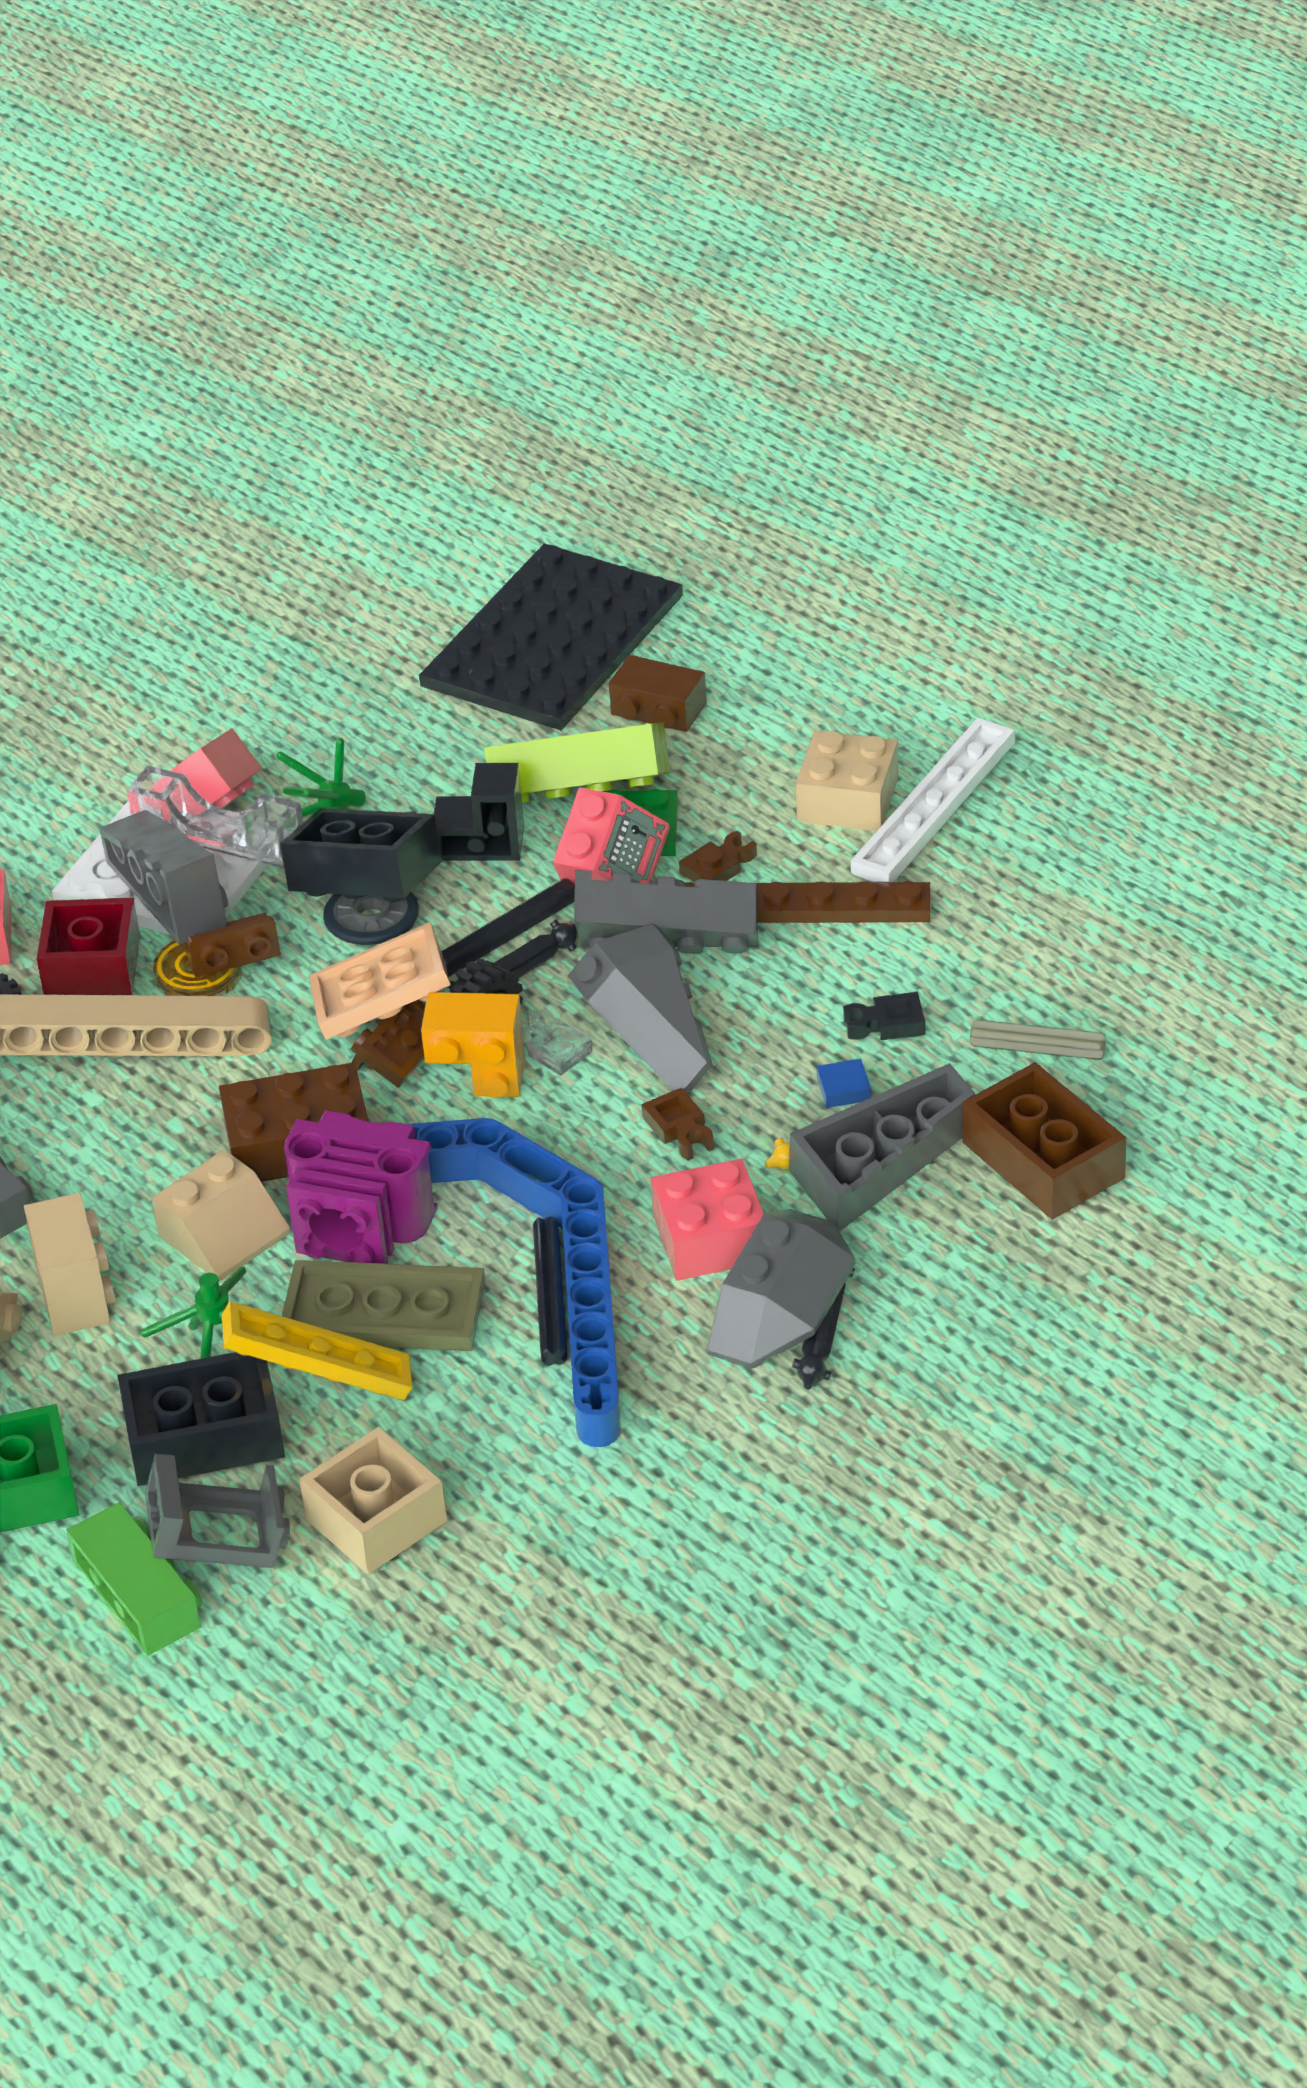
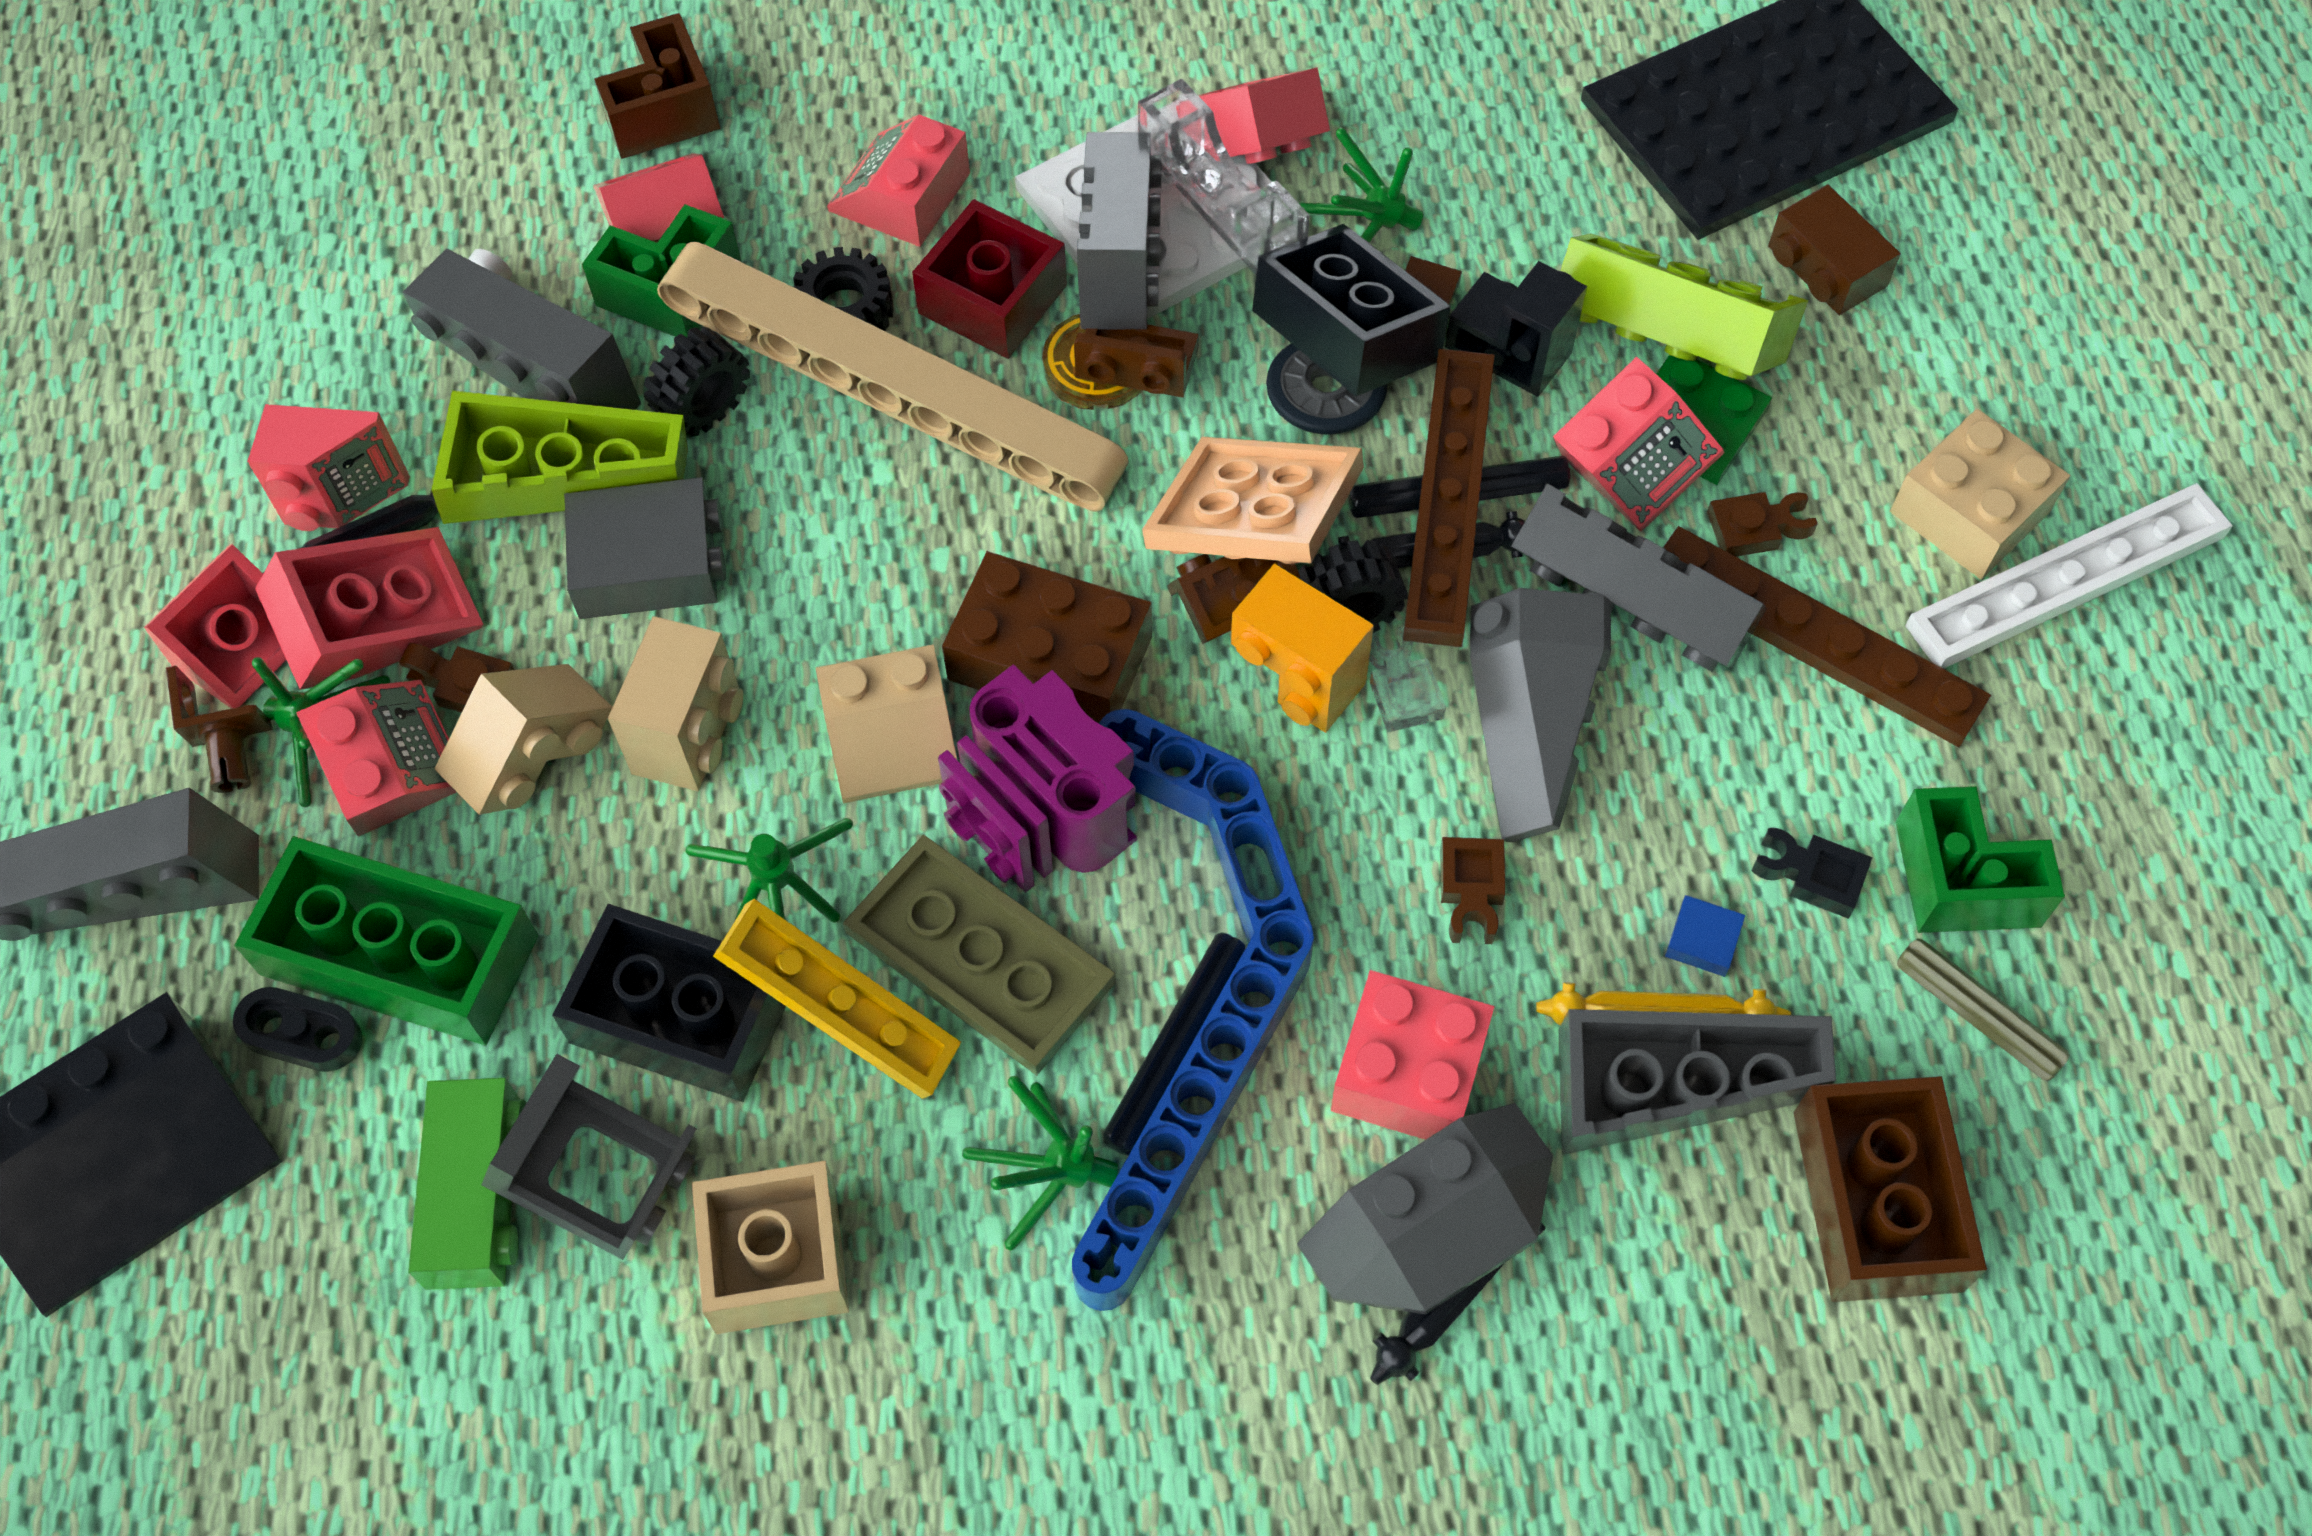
camera: 30 degrees right, 20 degrees up
(508, 925) = (1449, 499): none -> reddish brown plate
(525, 1374) = (1065, 1161): none -> green plant
(979, 972) = (1964, 879): none -> green brick

